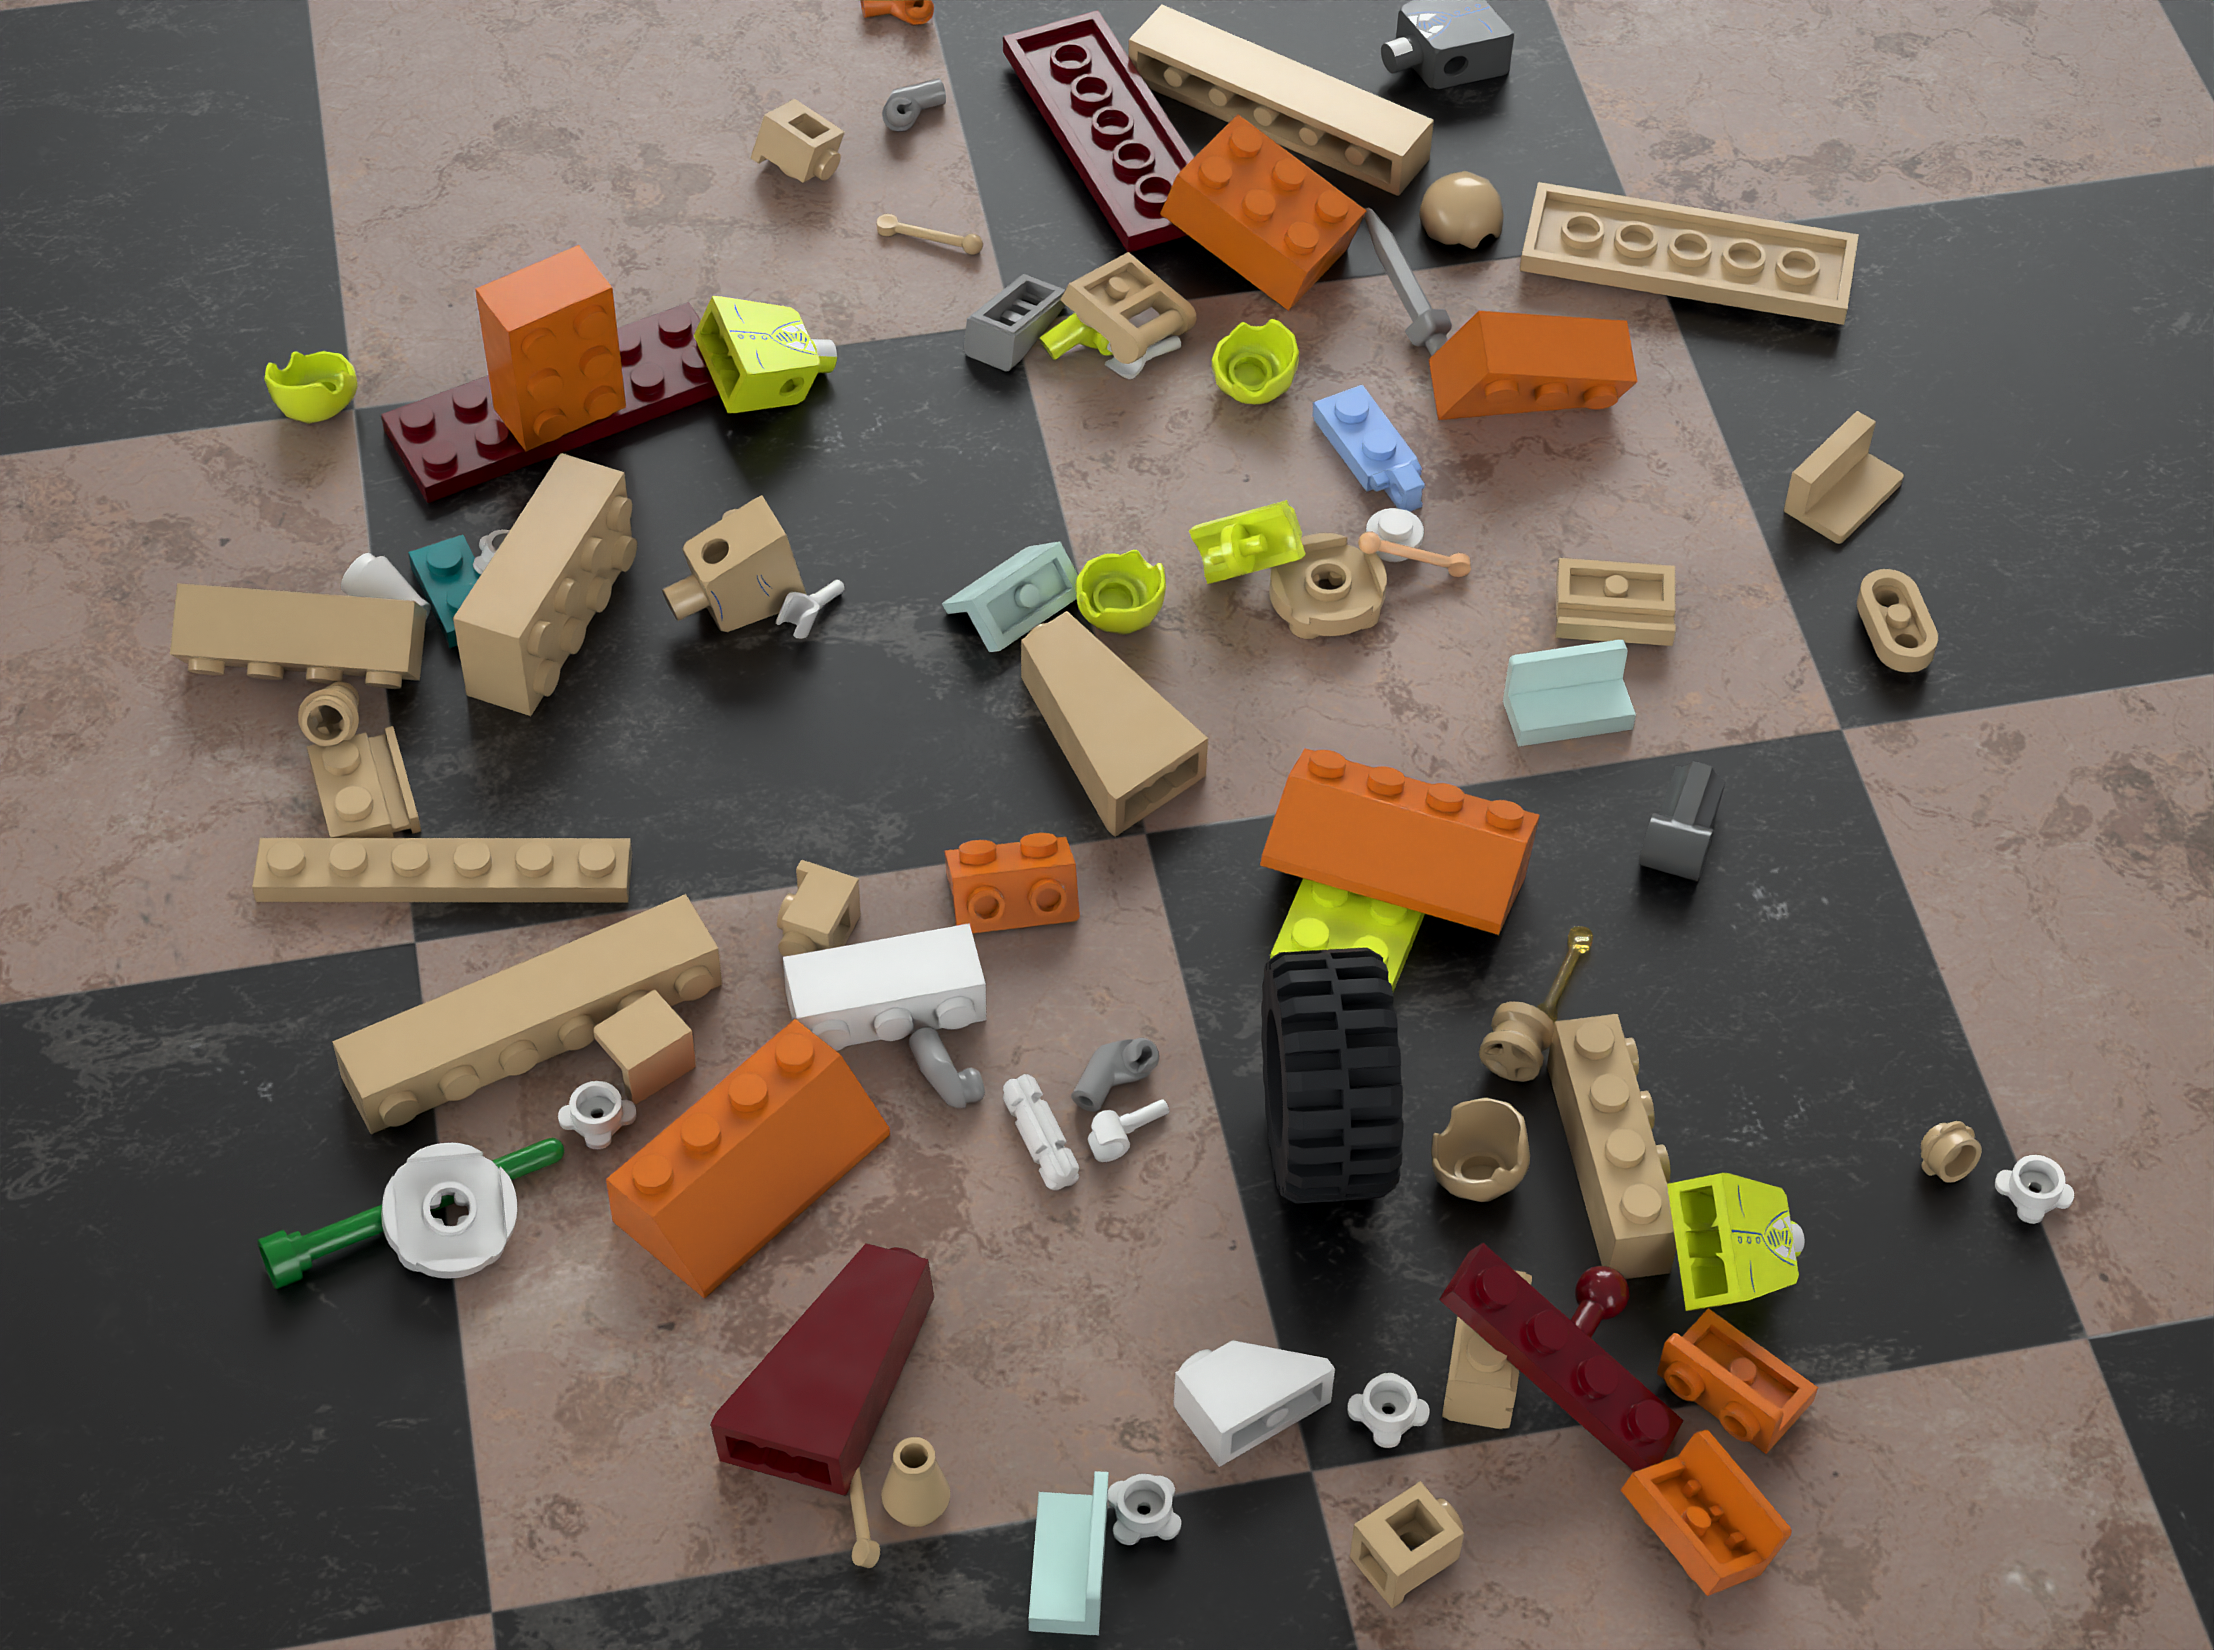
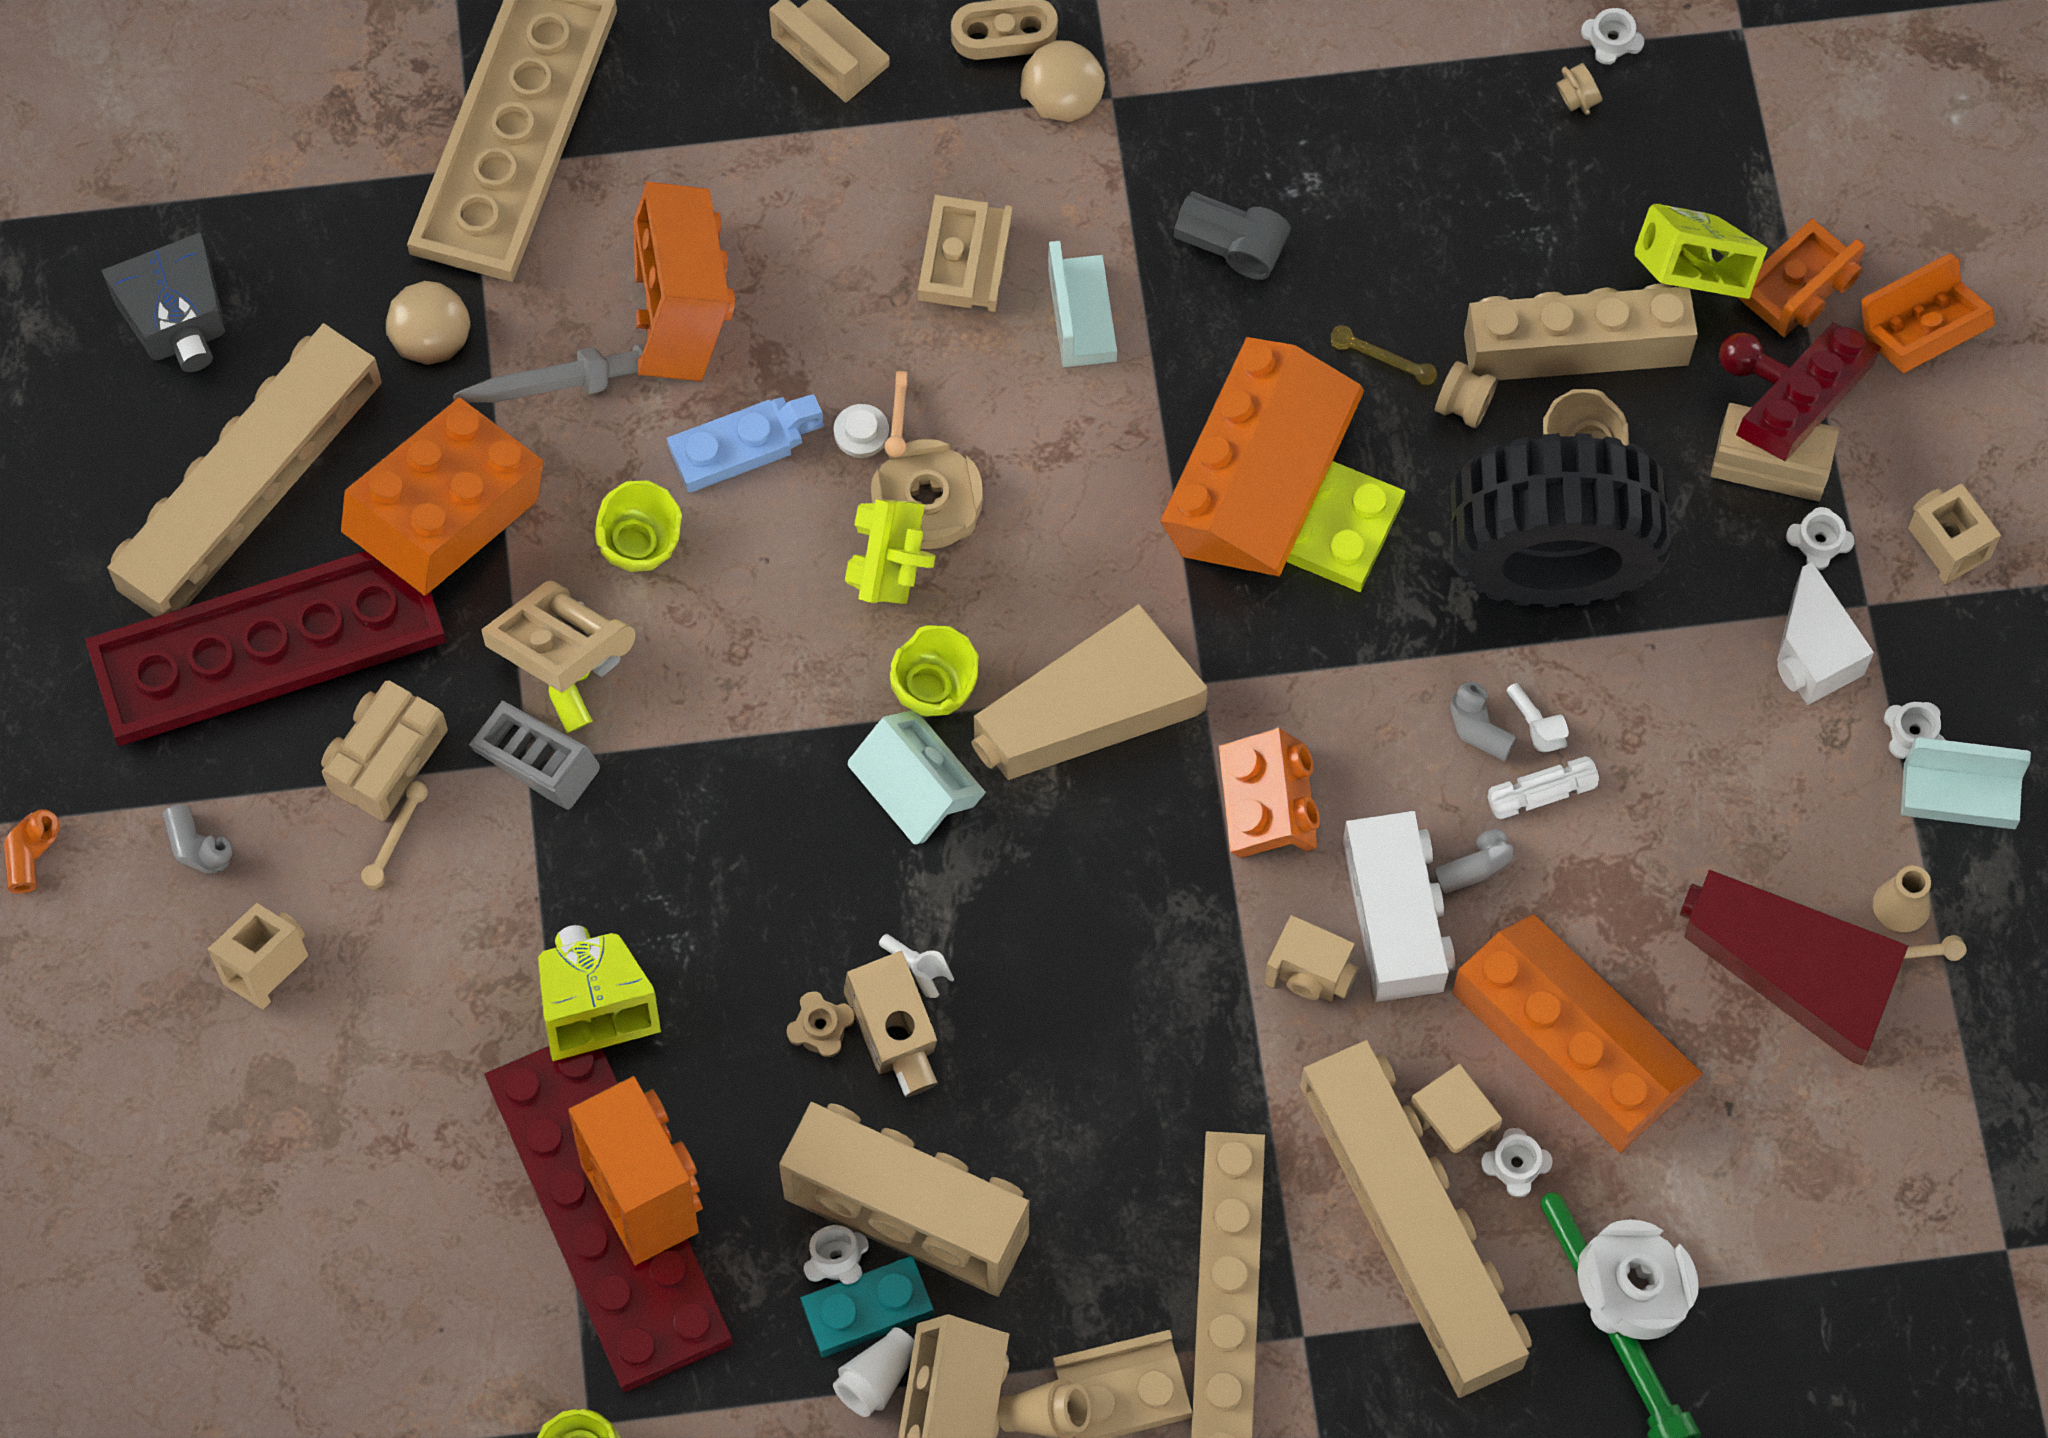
camera: 85 degrees left, 15 degrees up
(1006, 209) = (383, 749): none -> tan brick
(1844, 673) = (1062, 81): none -> tan hair

